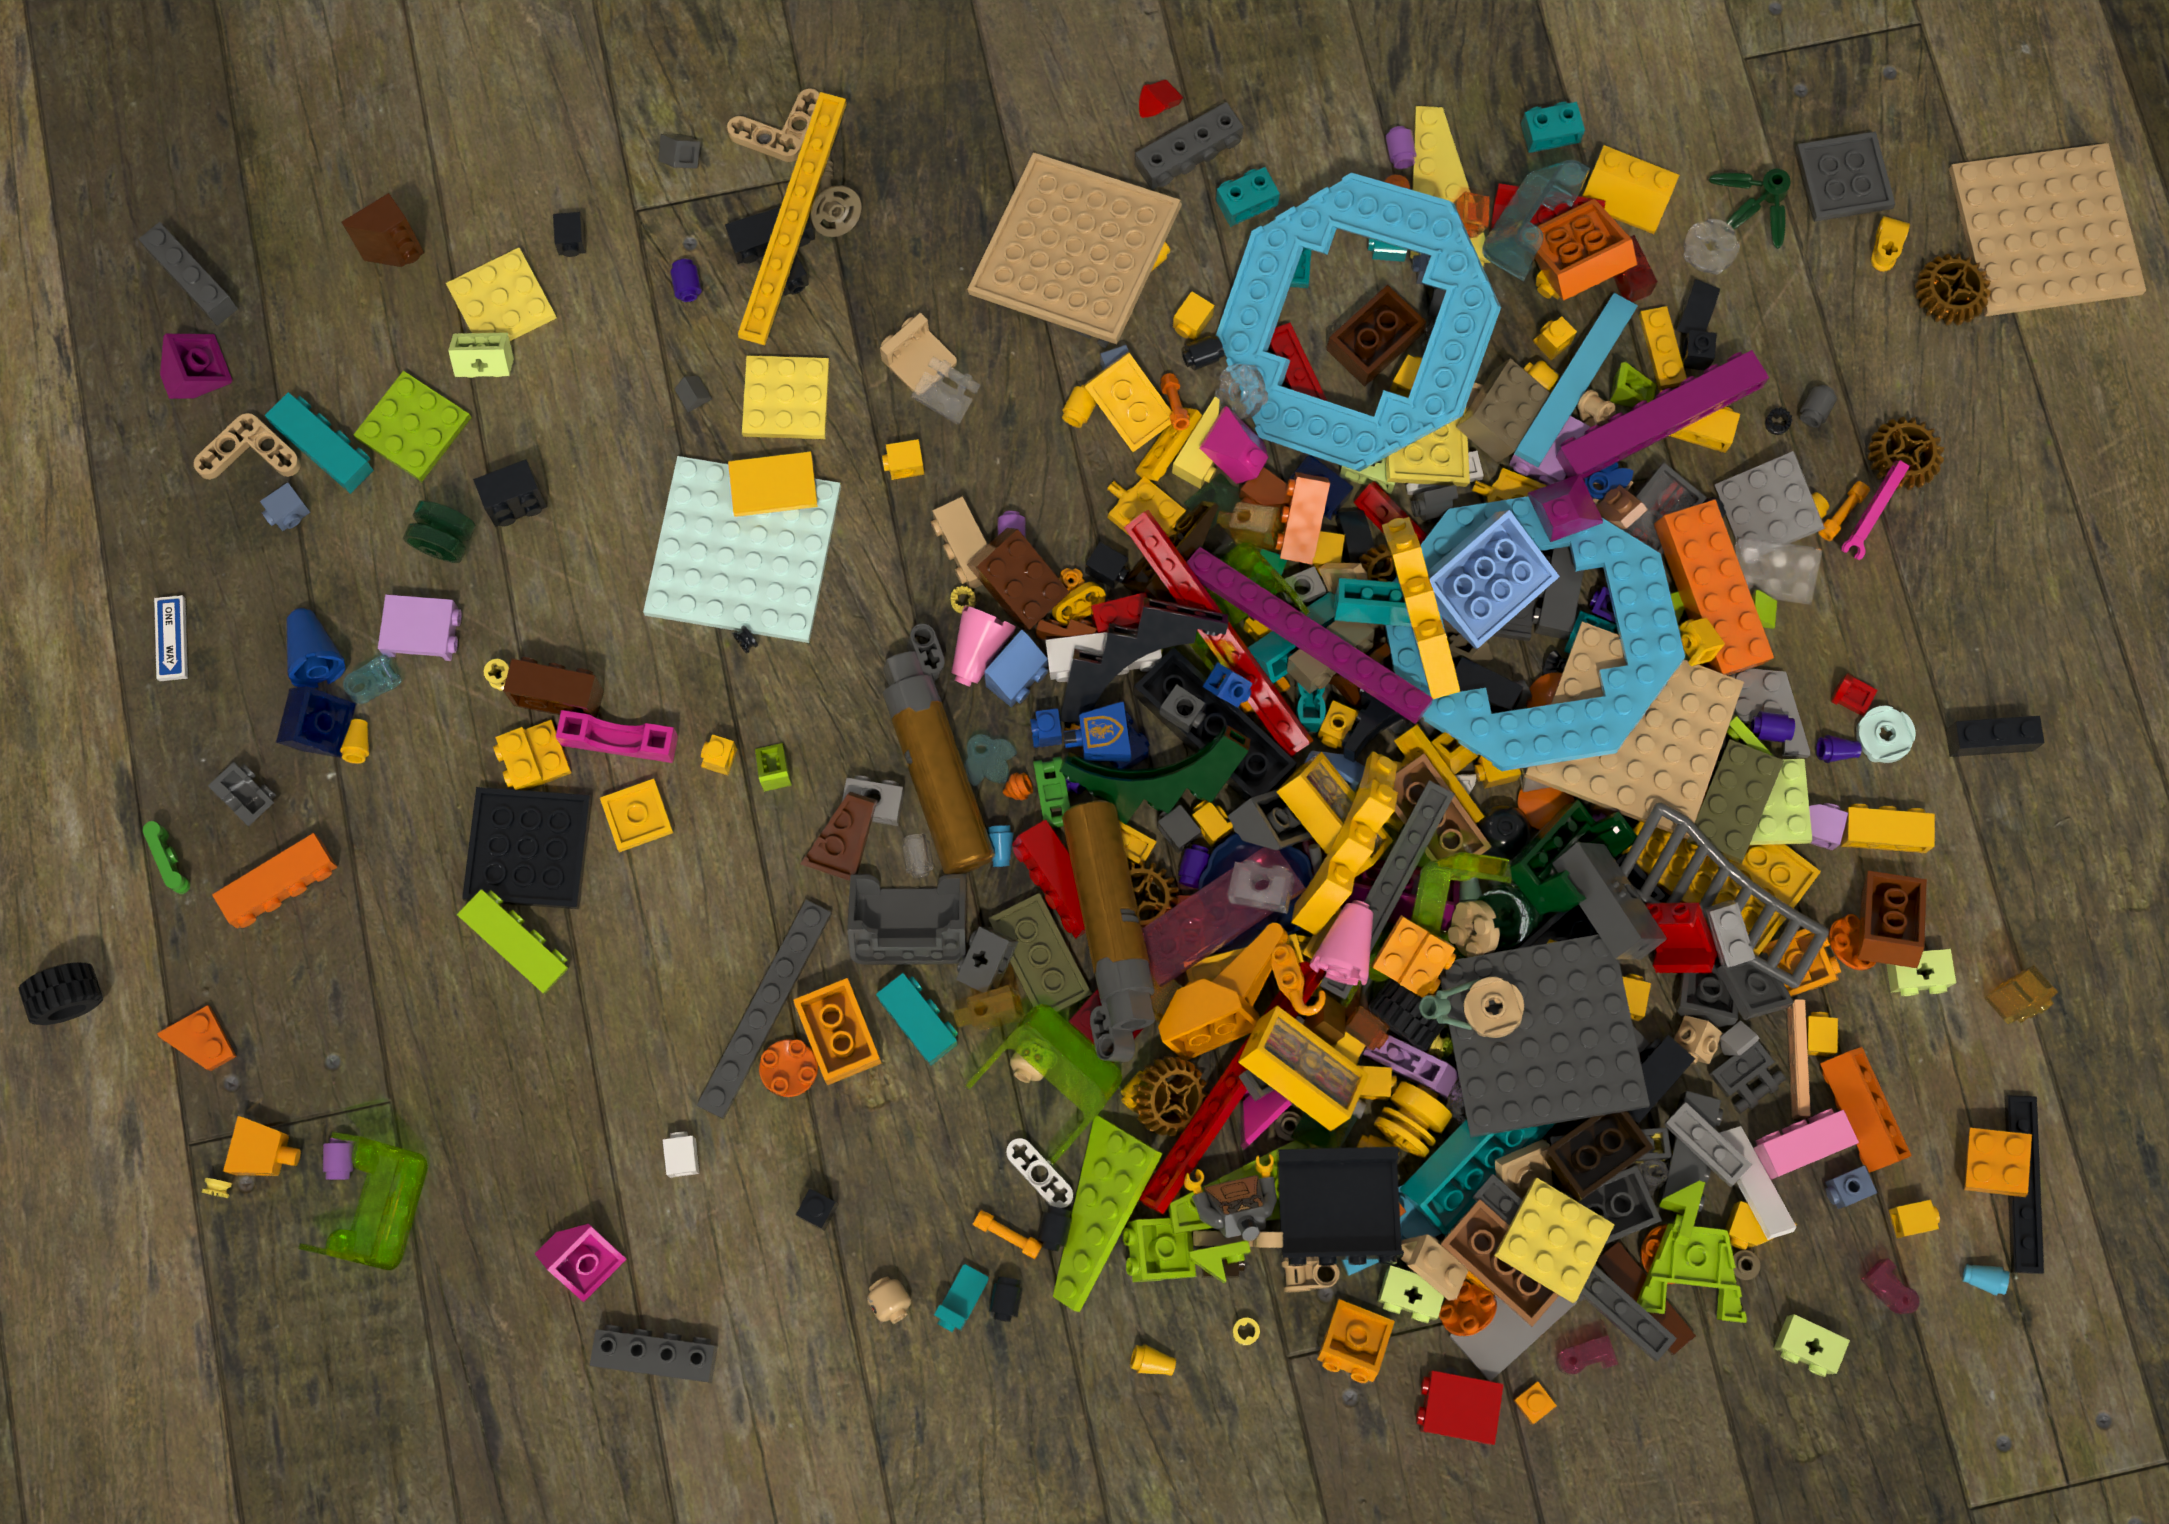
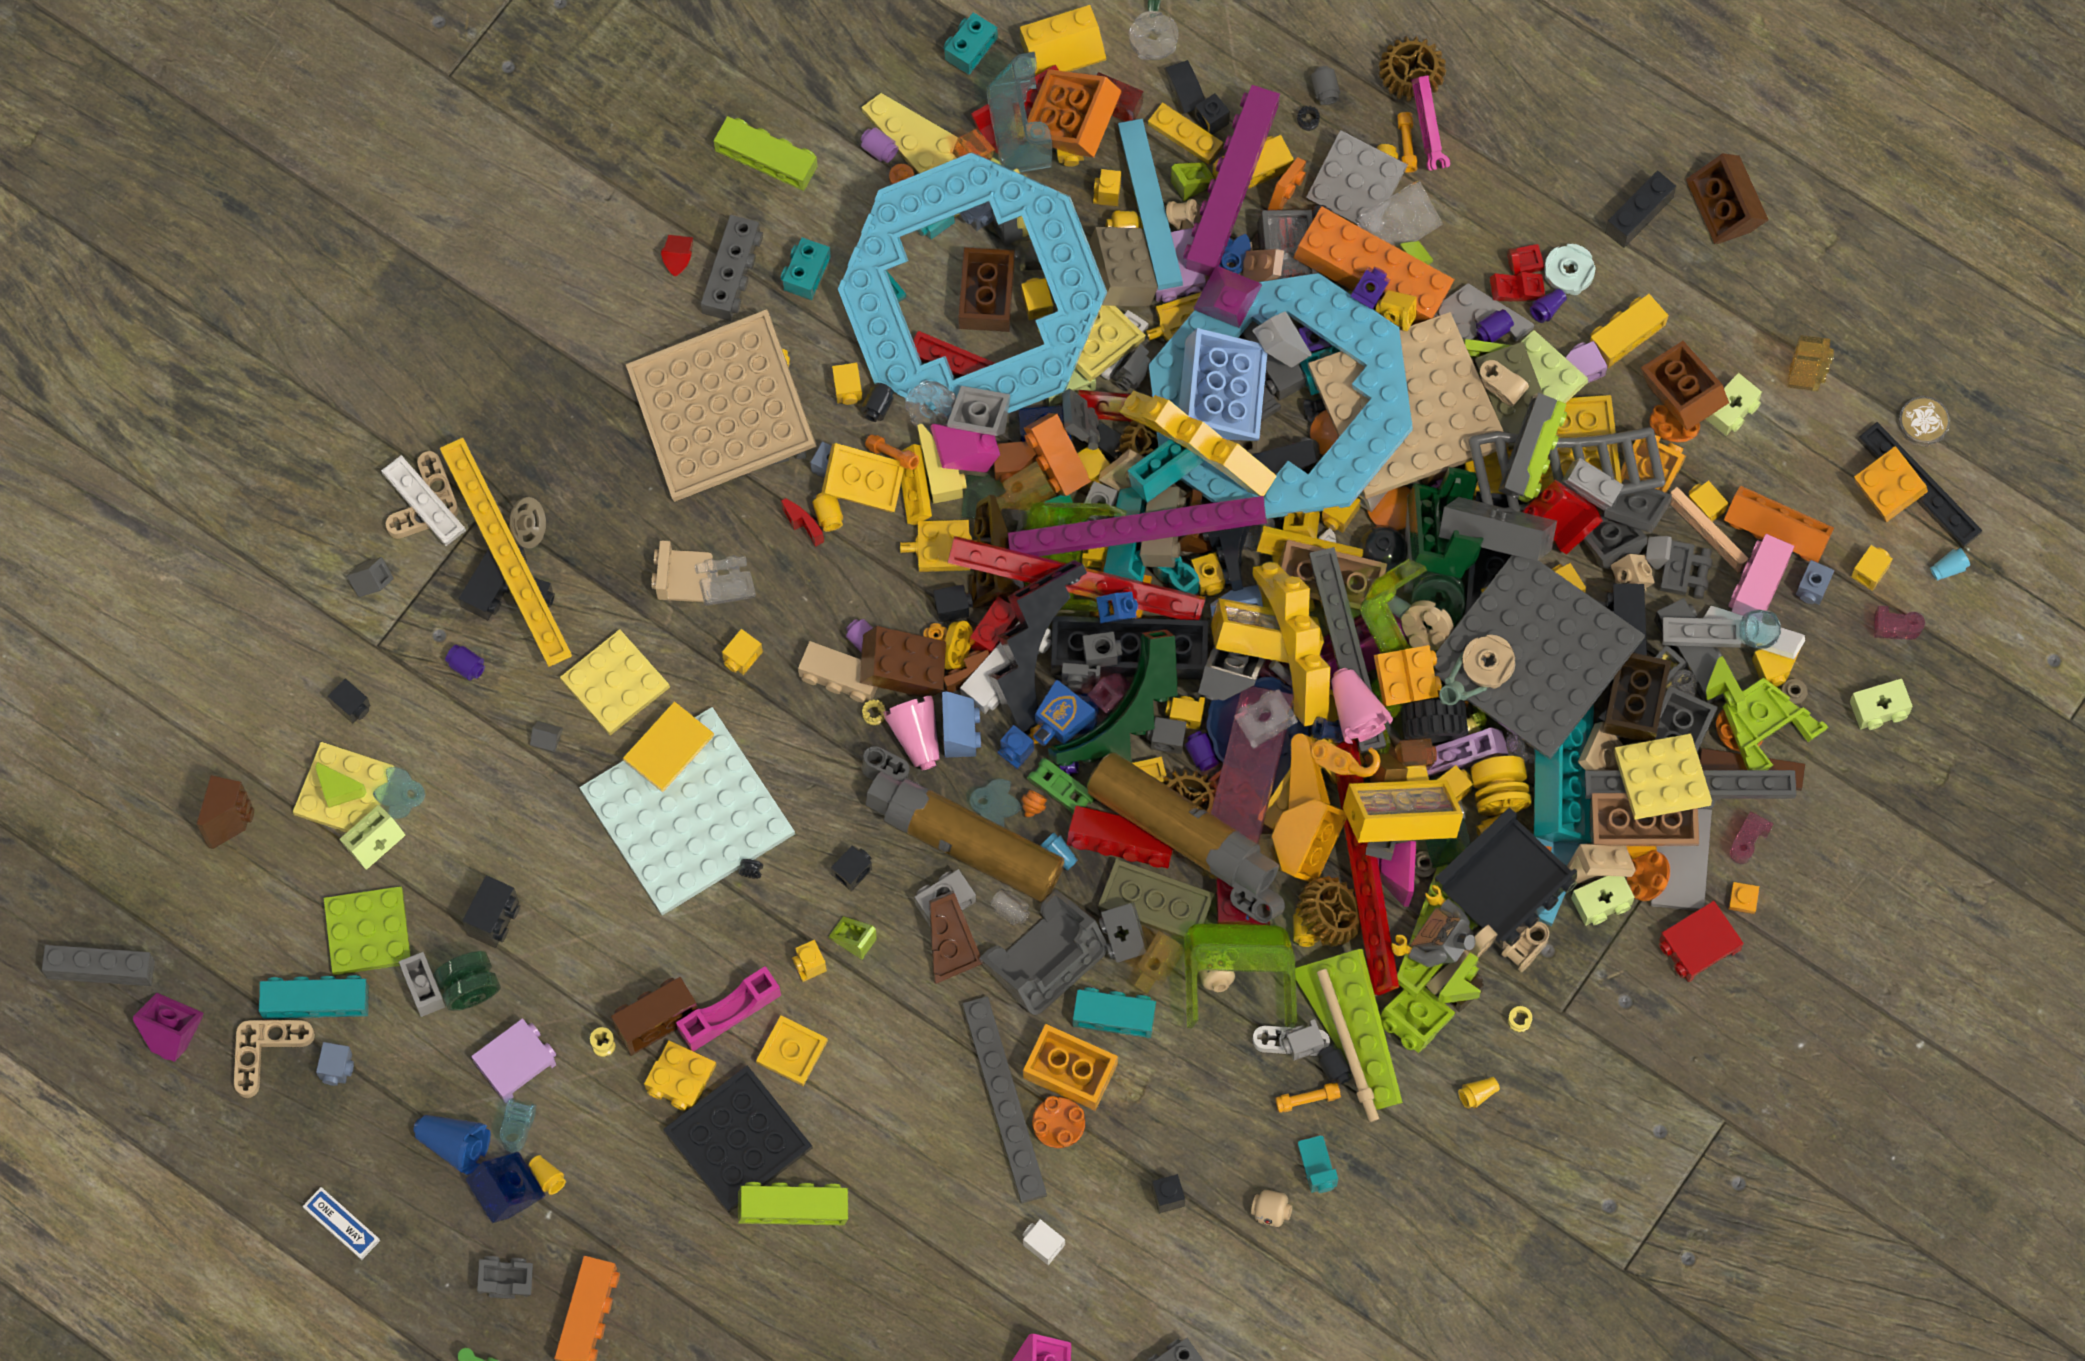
camera: 40 degrees left, 5 degrees down
(402, 501) = (422, 984): none -> light grey brick
(488, 291) = (338, 787): none -> lime slope
(534, 336) = (395, 793): none -> clear light blue plate
(774, 125) = (423, 500): none -> white tile
(824, 710) = (852, 867): none -> black brick
(1005, 1299) = (1346, 1138): black brick -> none
(1044, 1185) = (1303, 1041): none -> light grey brick
(1050, 392) = (799, 518): none -> red slope
(1054, 1276) = (1365, 1094): none -> tan bar
(1149, 716) = (1079, 676): none -> dark grey plate
(1162, 750) = (1109, 691): none -> clear pink leg
(1274, 429) = (980, 411): none -> light grey slope
(1304, 78) = (766, 153): none -> lime brick
(1305, 941) = (1327, 729): none -> dark blue bush
(1348, 505) = (1080, 419): none -> dark grey plate
(1355, 1342) = (1596, 961): light orange plate -> none
(1575, 582) = (1282, 340): none -> light grey slope
(1681, 606) = (1367, 297): none -> dark purple brick
(1705, 857) = (1532, 447): none -> piece
(1706, 460) = (1287, 184): none -> orange wing
(1732, 785) = (1506, 384): none -> tan piece
(1760, 1188) = (1760, 629): none -> clear light blue hair
(1824, 712) = (1517, 288): none -> red slope
(2079, 1132) = (1924, 421): none -> tile
(2080, 791) = (1726, 198): none -> reddish brown slope

